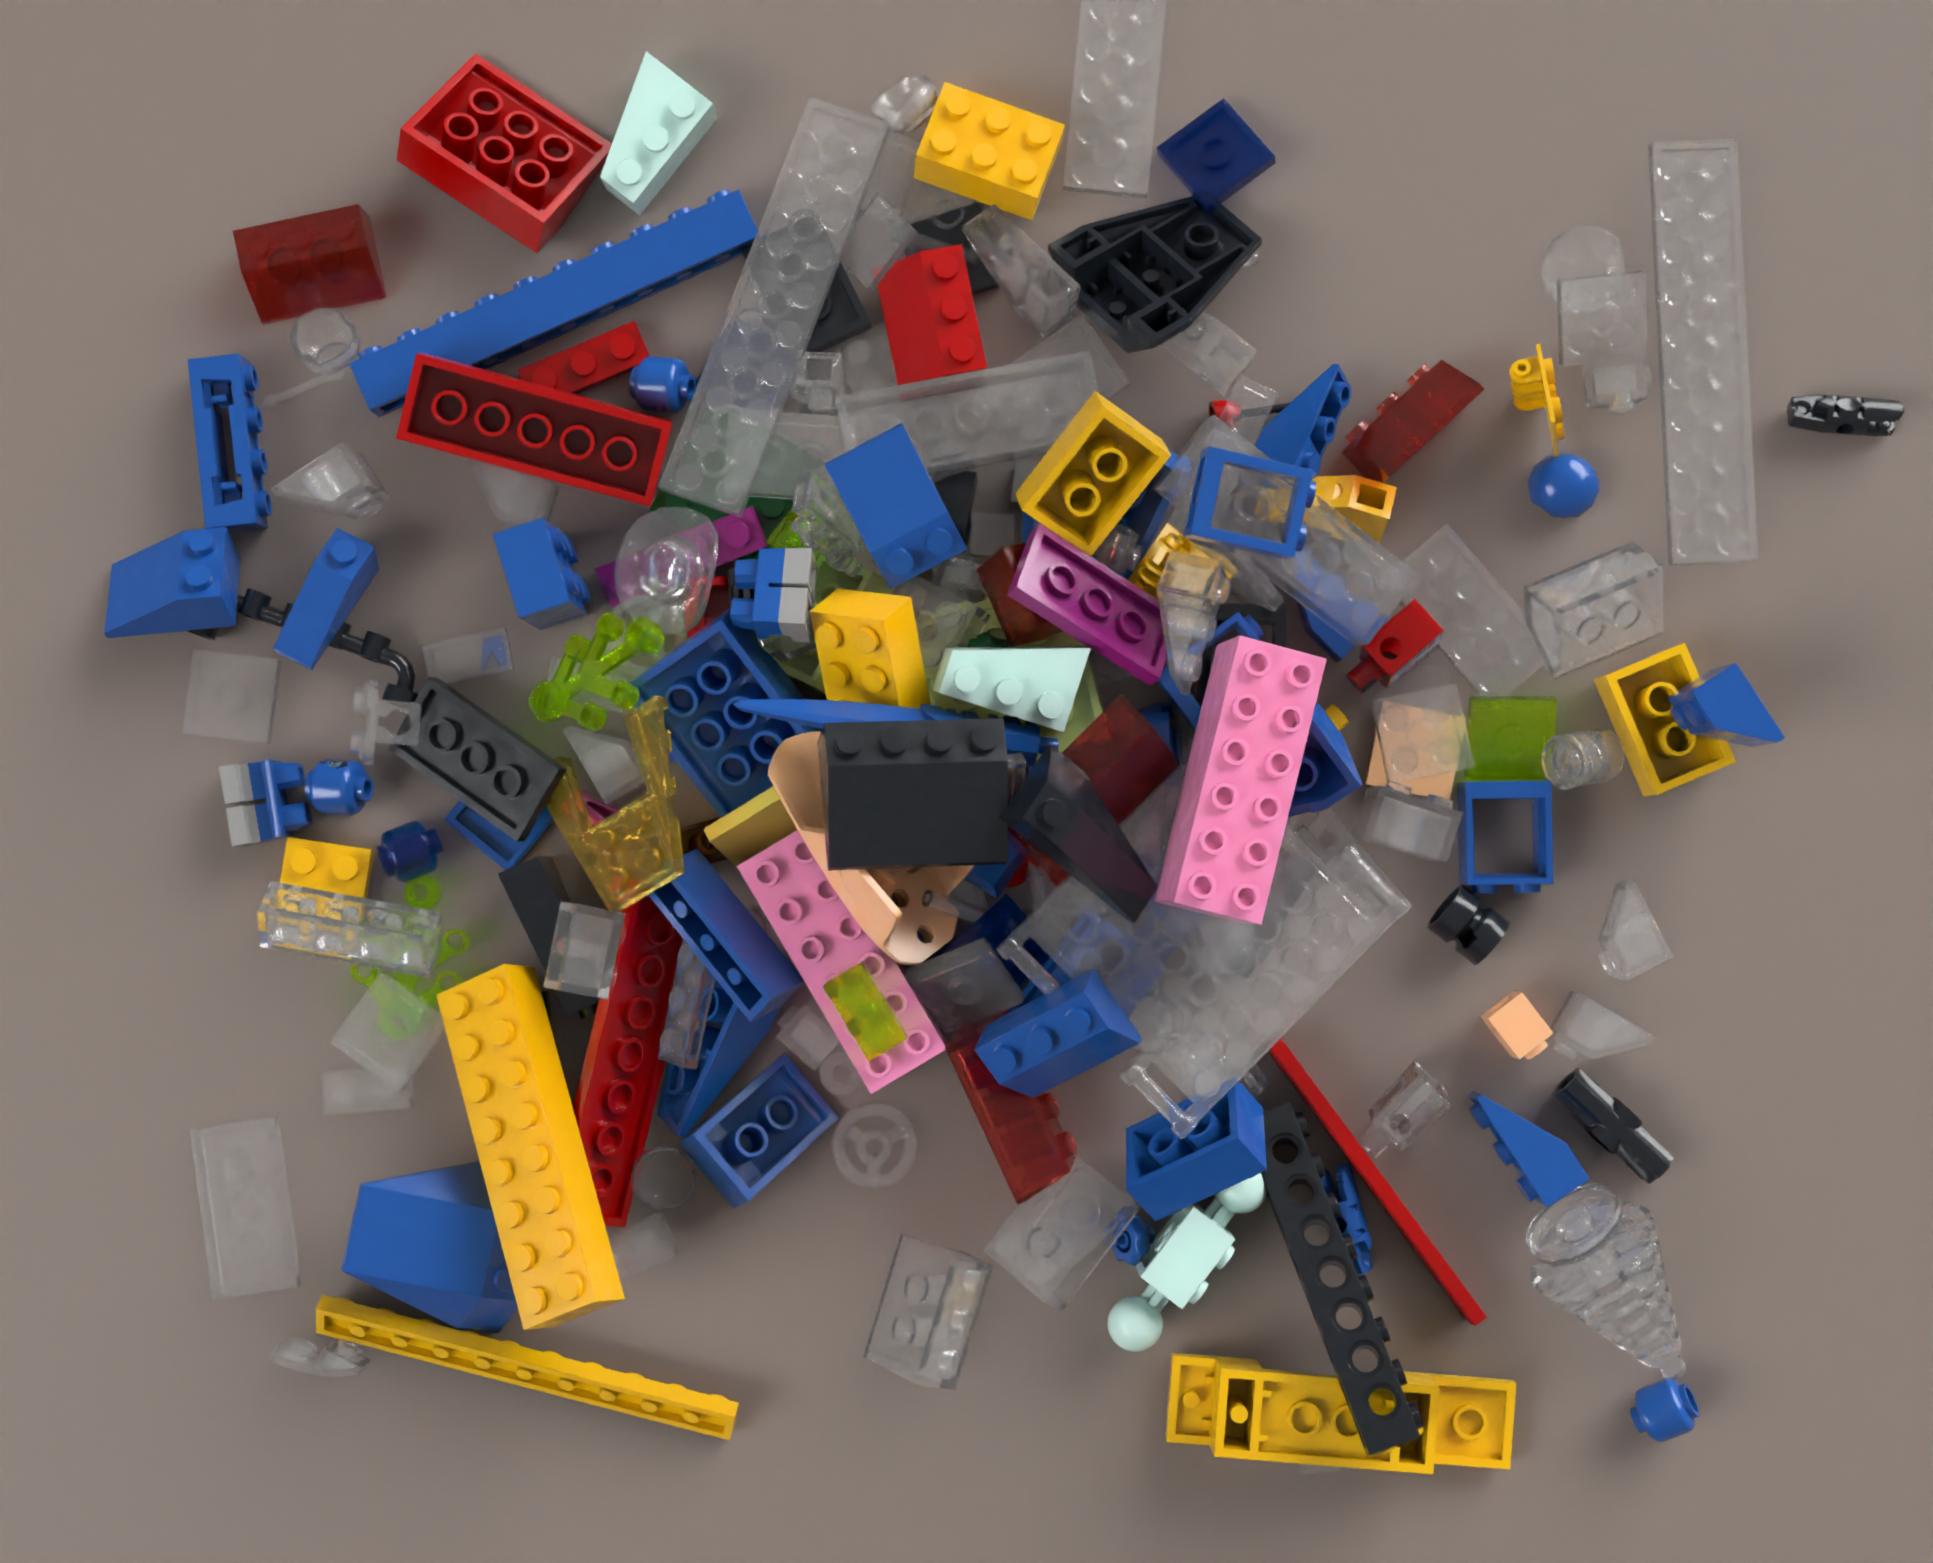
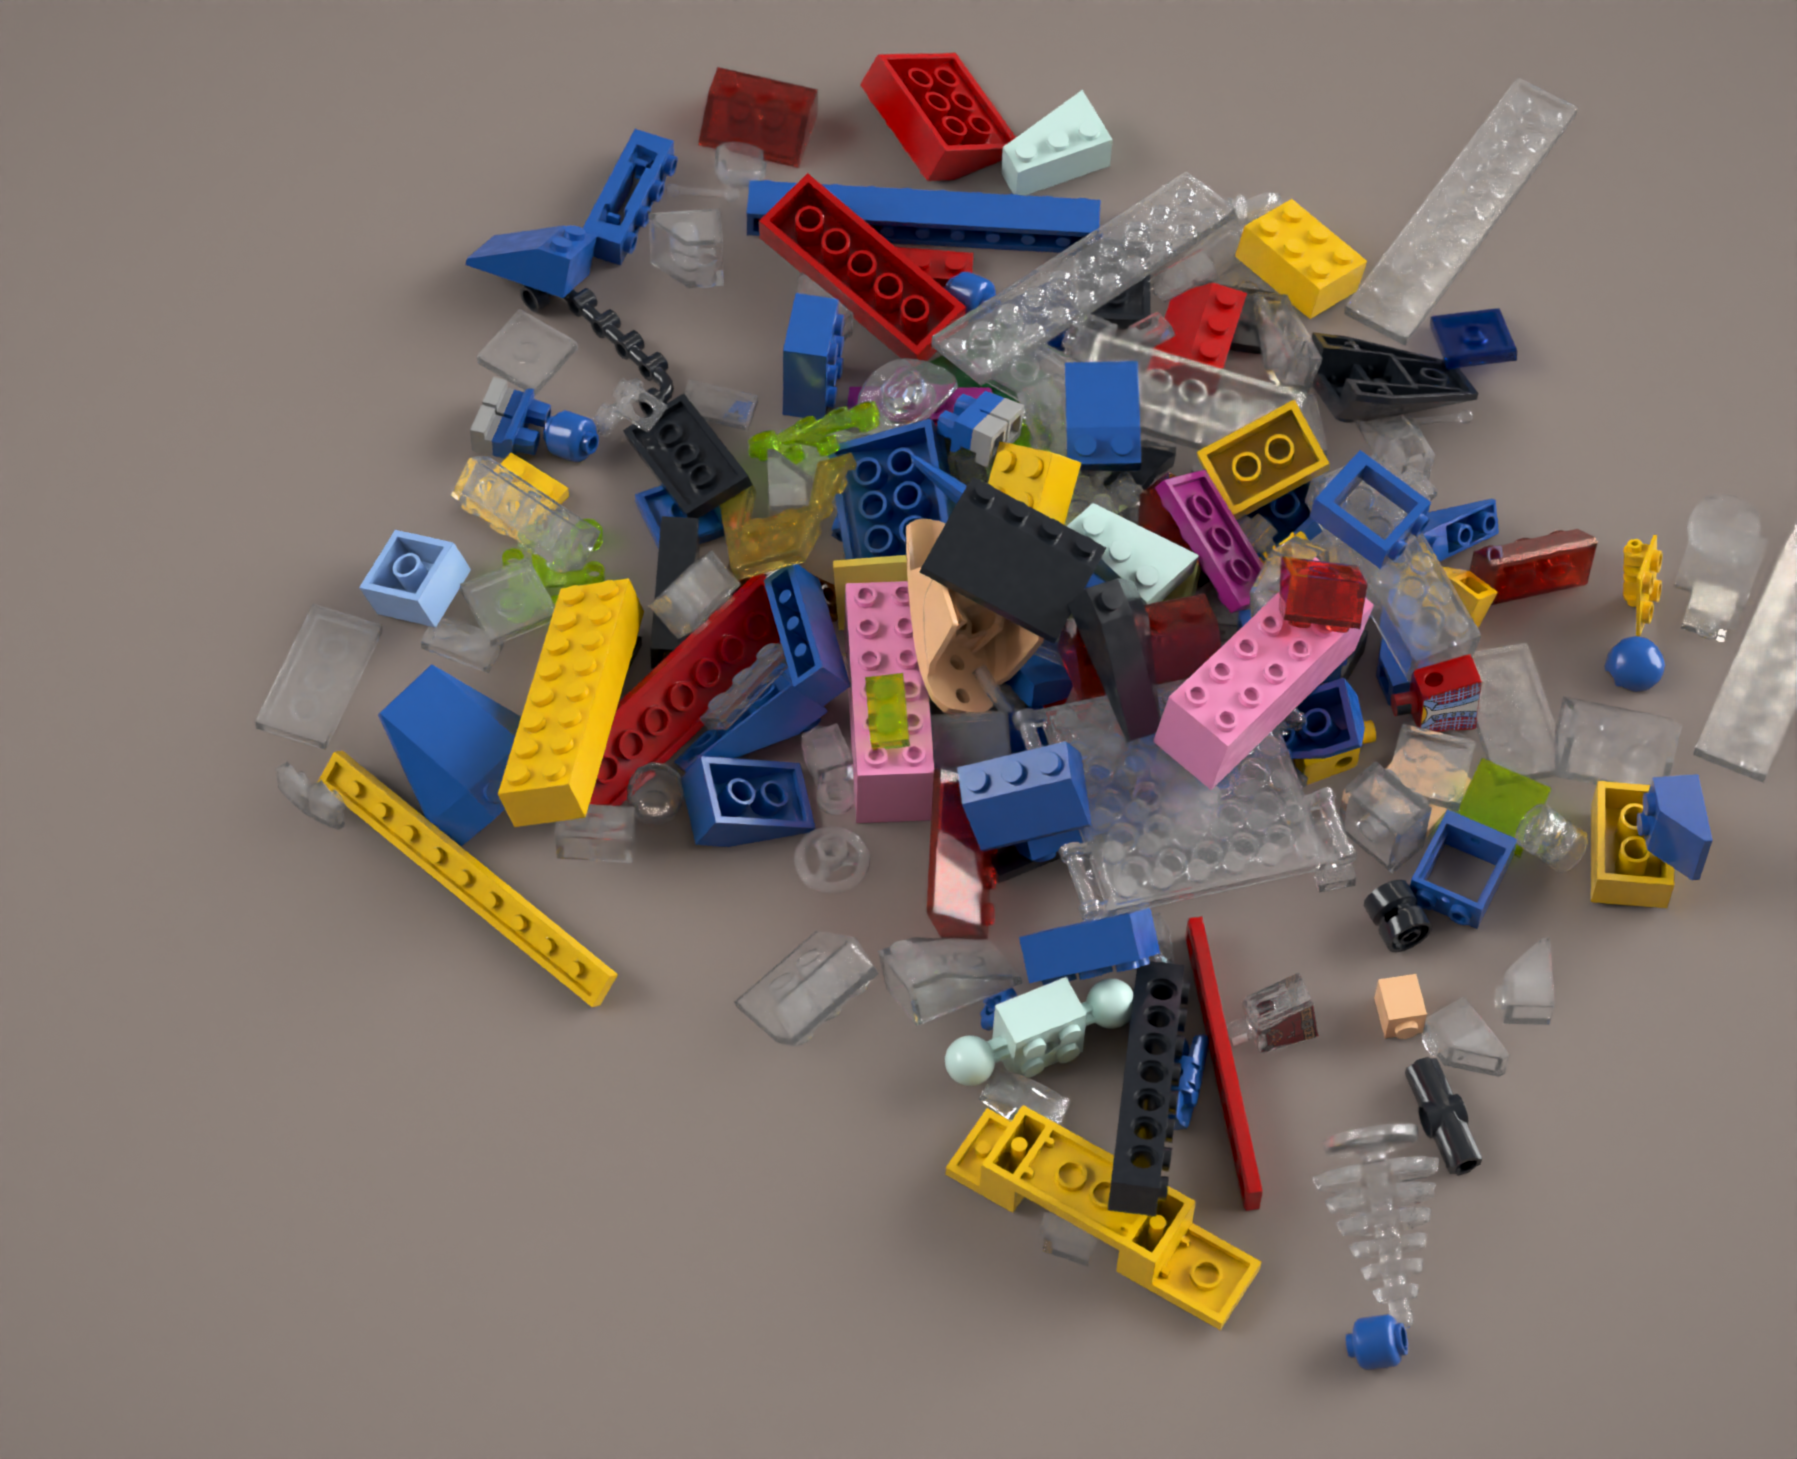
camera: 25 degrees right, 30 degrees down
(279, 1060) = (415, 578): none -> light blue brick
(327, 597) = (646, 309): blue slope -> none
(409, 851) = (597, 498): clear blue head -> none
(880, 341) = (1151, 330): none -> clear tile
(1205, 1324) = (1009, 1091): none -> clear slope
(1276, 693) = (1321, 594): none -> clear red slope
(1542, 1160) = (1360, 1088): blue slope -> none

